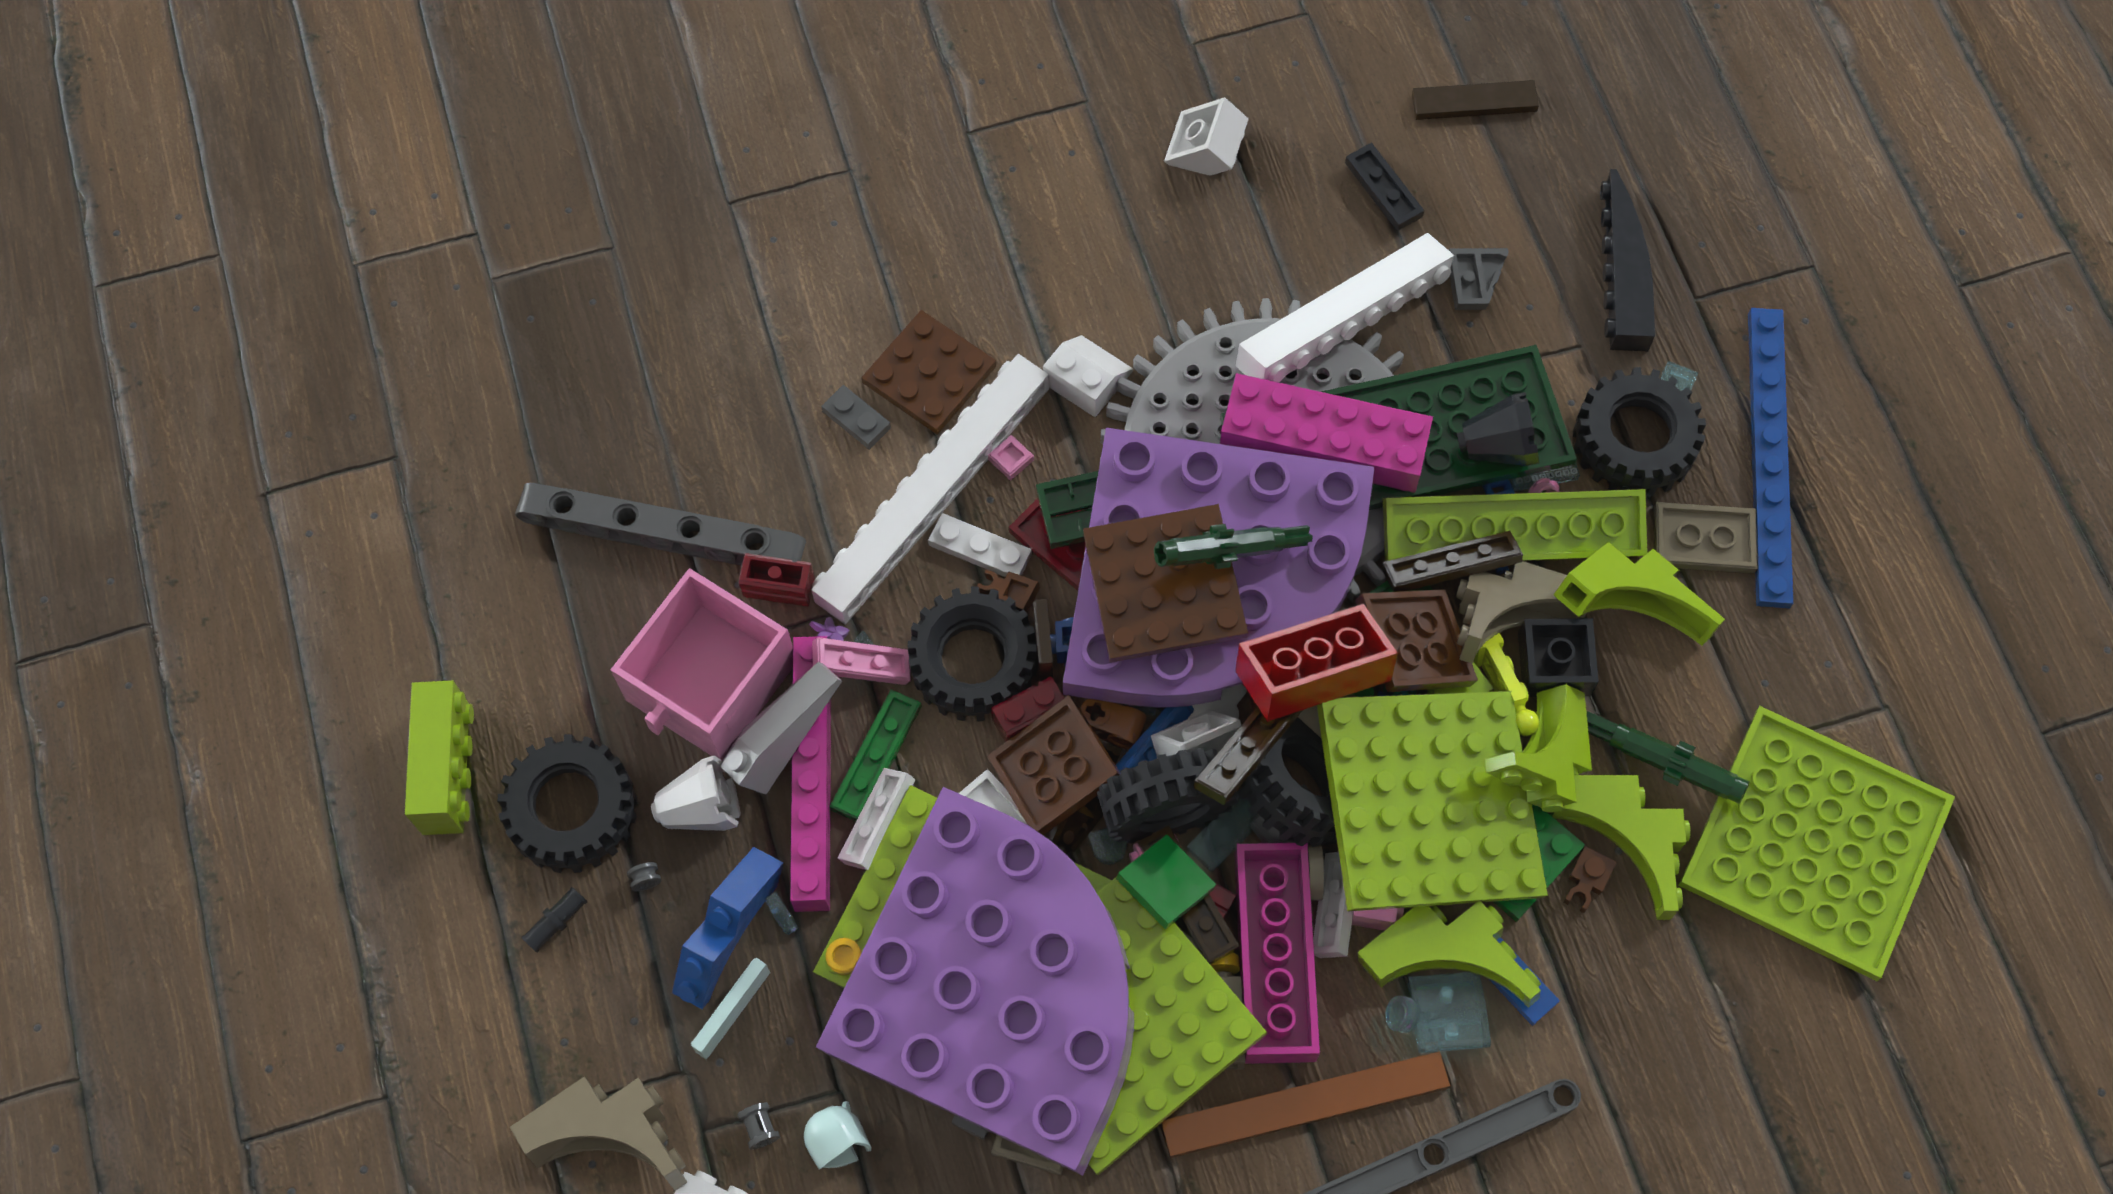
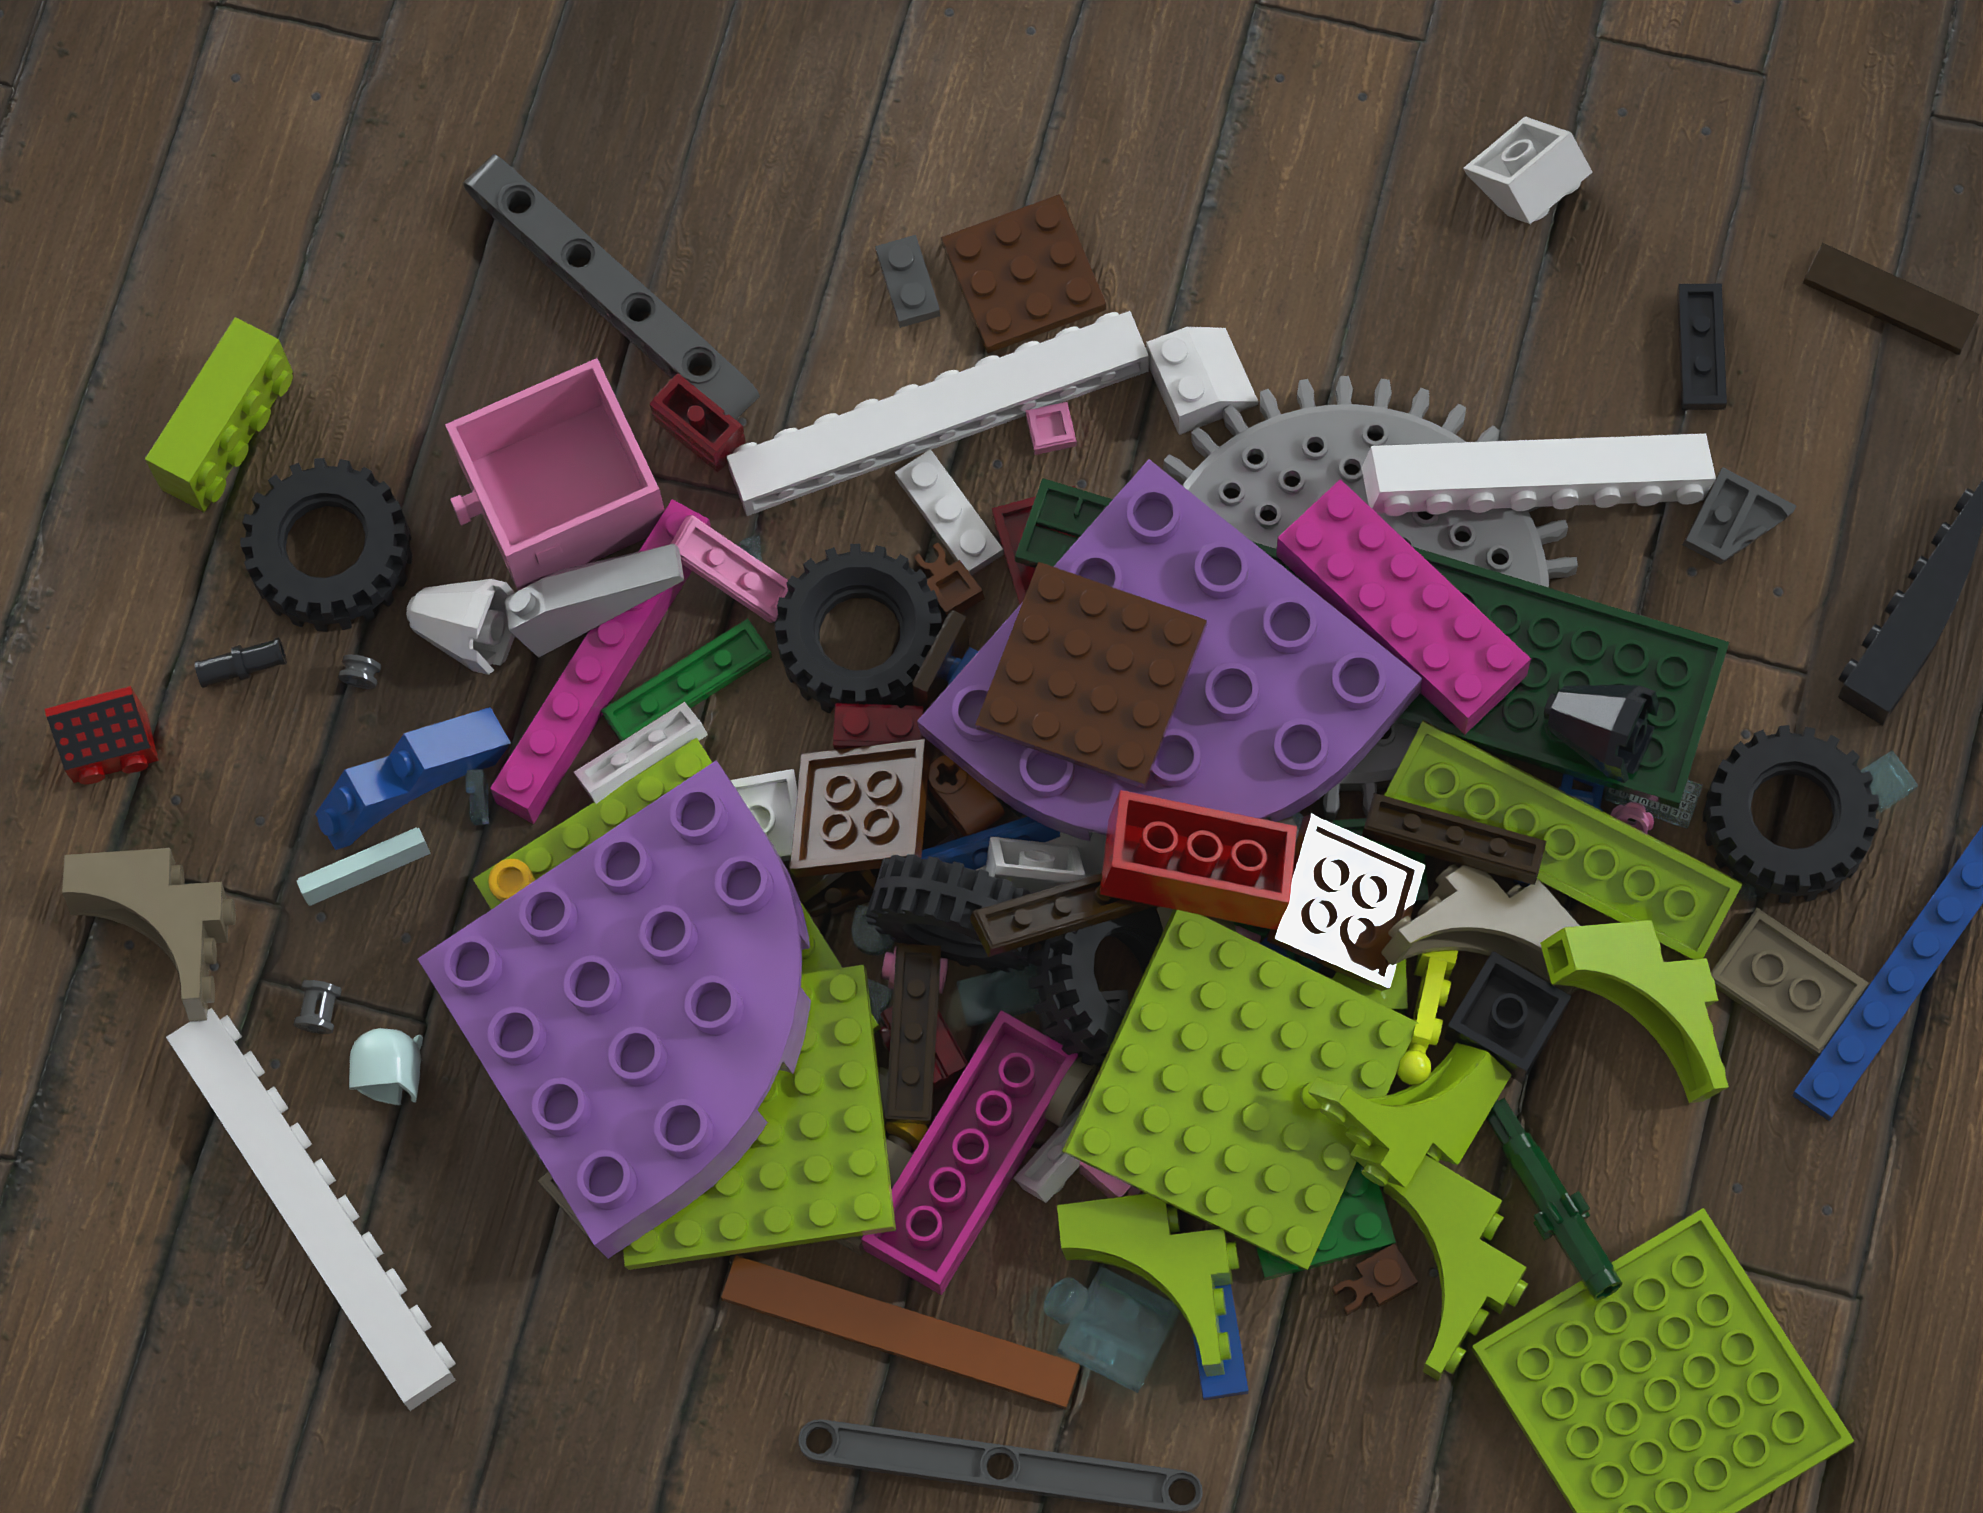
camera: 35 degrees right, 5 degrees up
(486, 1026) = (102, 735): none -> slope
(830, 630) = (722, 515): medium lavender plant -> none
(1166, 881) = (892, 1004): green tile -> none
(1226, 545) = (1172, 672): dark green piece -> none

